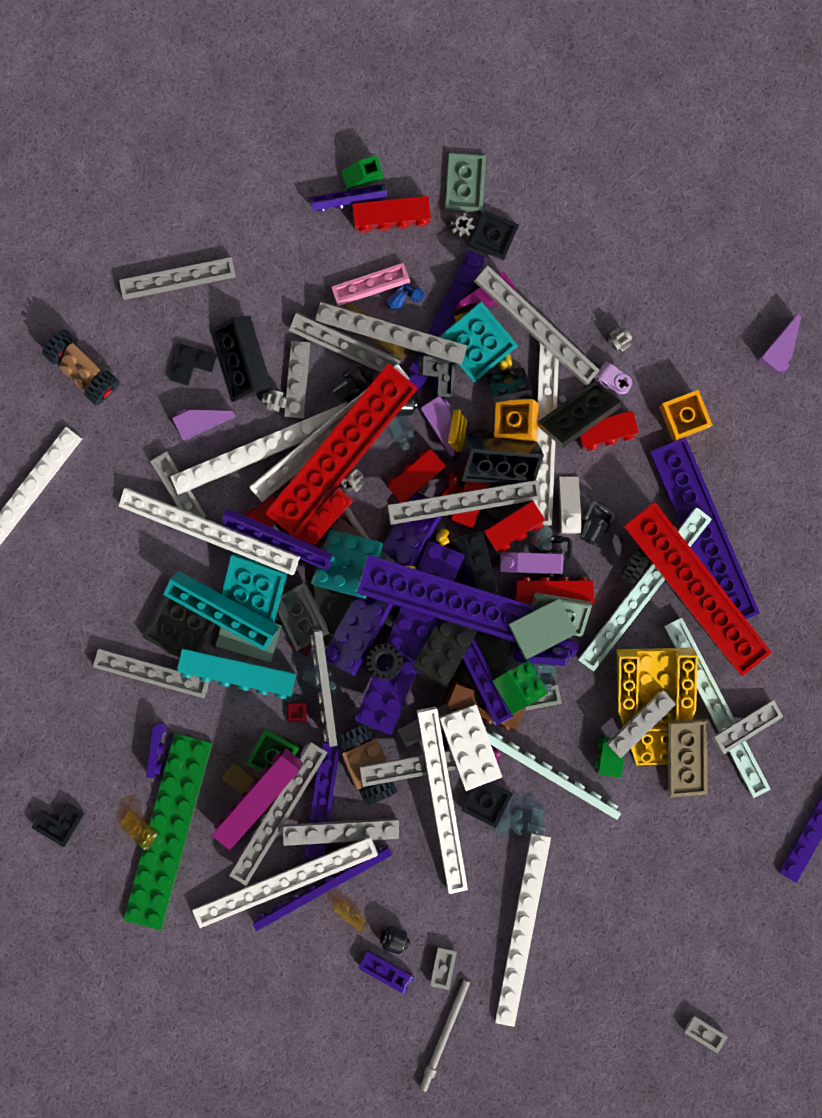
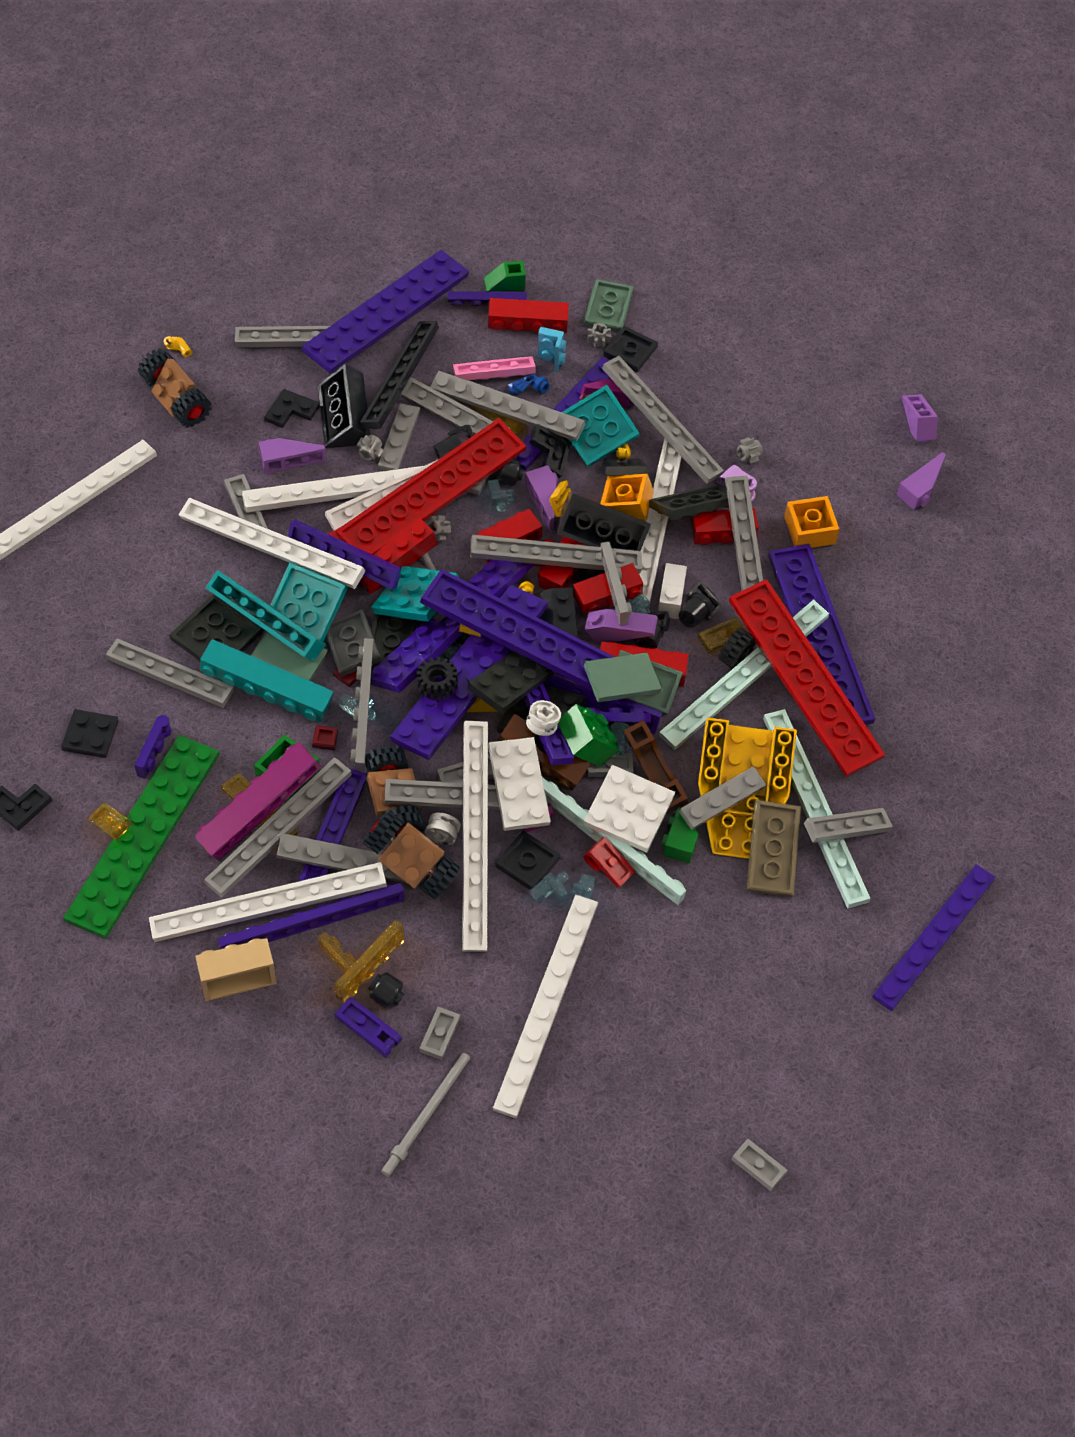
camera: 15 degrees right, 30 degrees down
(70, 307) = (177, 344): none -> yellow arm
(99, 743) = (90, 733): none -> black plate
(256, 233) = (385, 311): none -> dark purple plate
(273, 949) = (236, 969): none -> tan piece
(285, 313) = (399, 375): none -> black plate
(381, 912) = (369, 961): none -> clear yellow plate
(393, 828) = (411, 855): none -> plate
(412, 788) = (442, 829): none -> white wheel
(418, 253) = (552, 346): none -> medium azure bracket
(482, 686) = (543, 717): none -> white wheel
(519, 523) = (618, 591): none -> light grey plate
(553, 793) = (607, 858): none -> red plate
(565, 751) = (629, 808): none -> white plate
(578, 697) = (652, 763): none -> reddish brown arch
(617, 548) = (716, 636): none -> clear yellow plate
(628, 447) = (744, 531): none -> light grey plate
(773, 269) = (920, 418): none -> medium lavender slope

